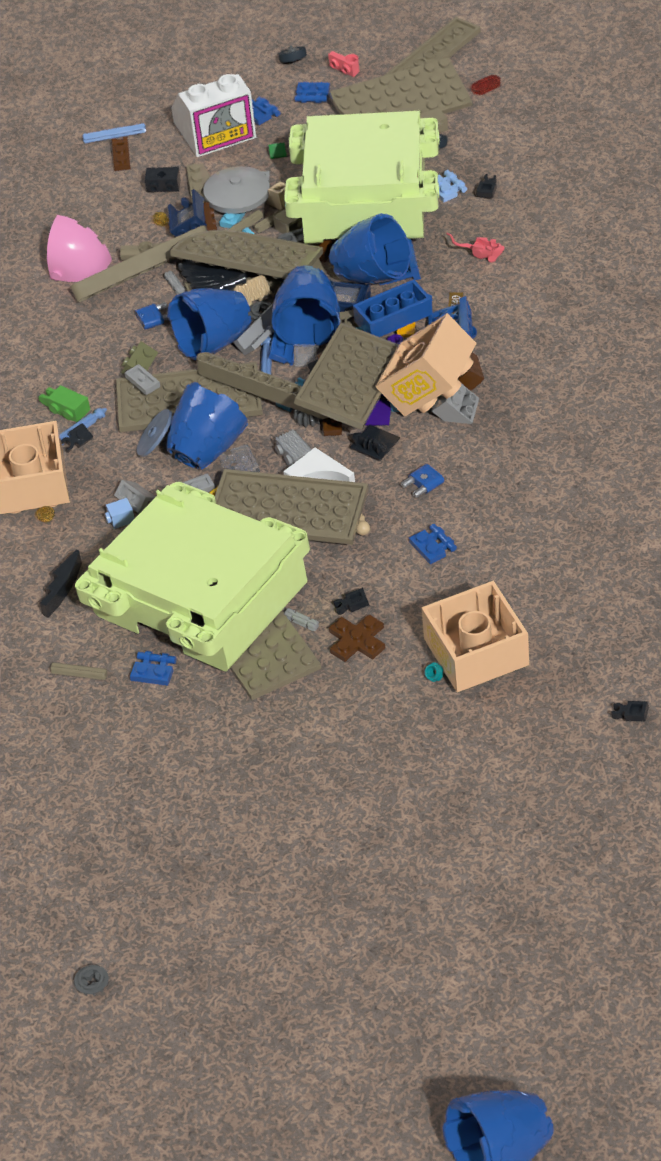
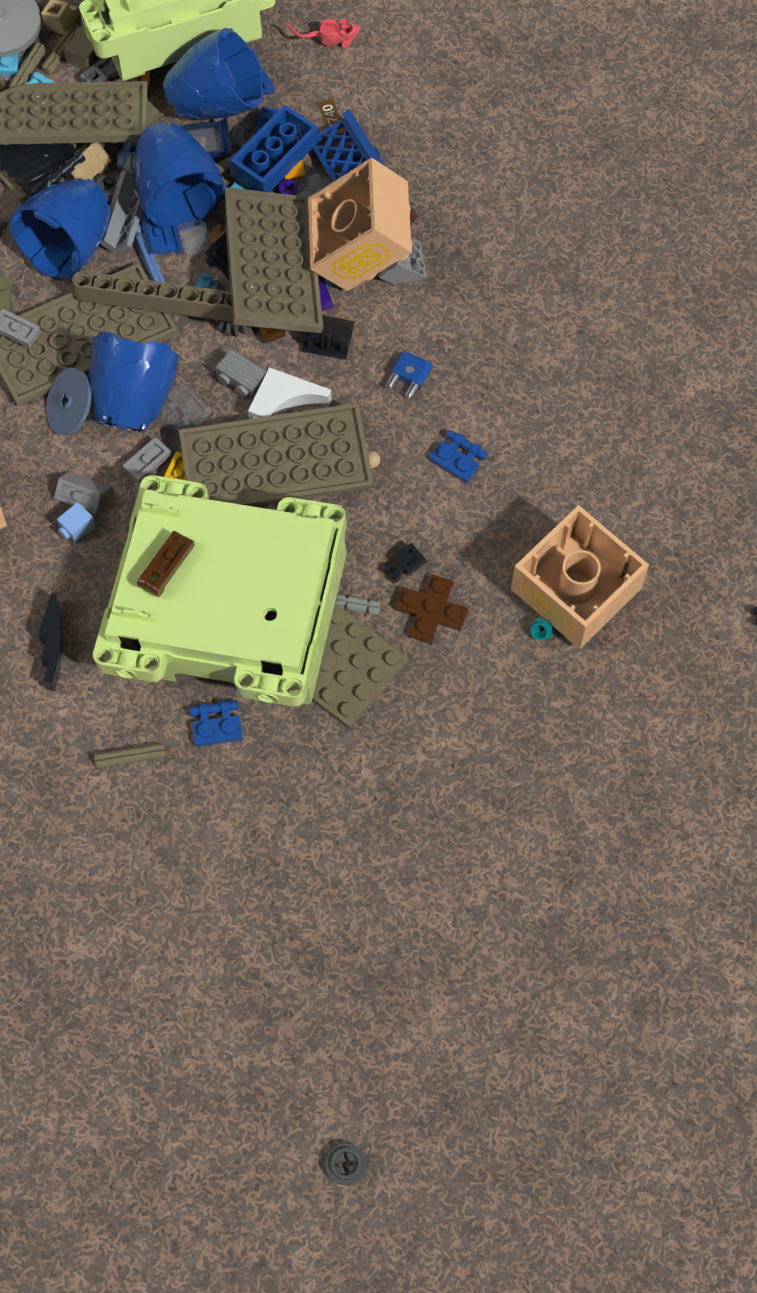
camera: 30 degrees left, 20 degrees up
(153, 530) = (165, 563): none -> reddish brown plate

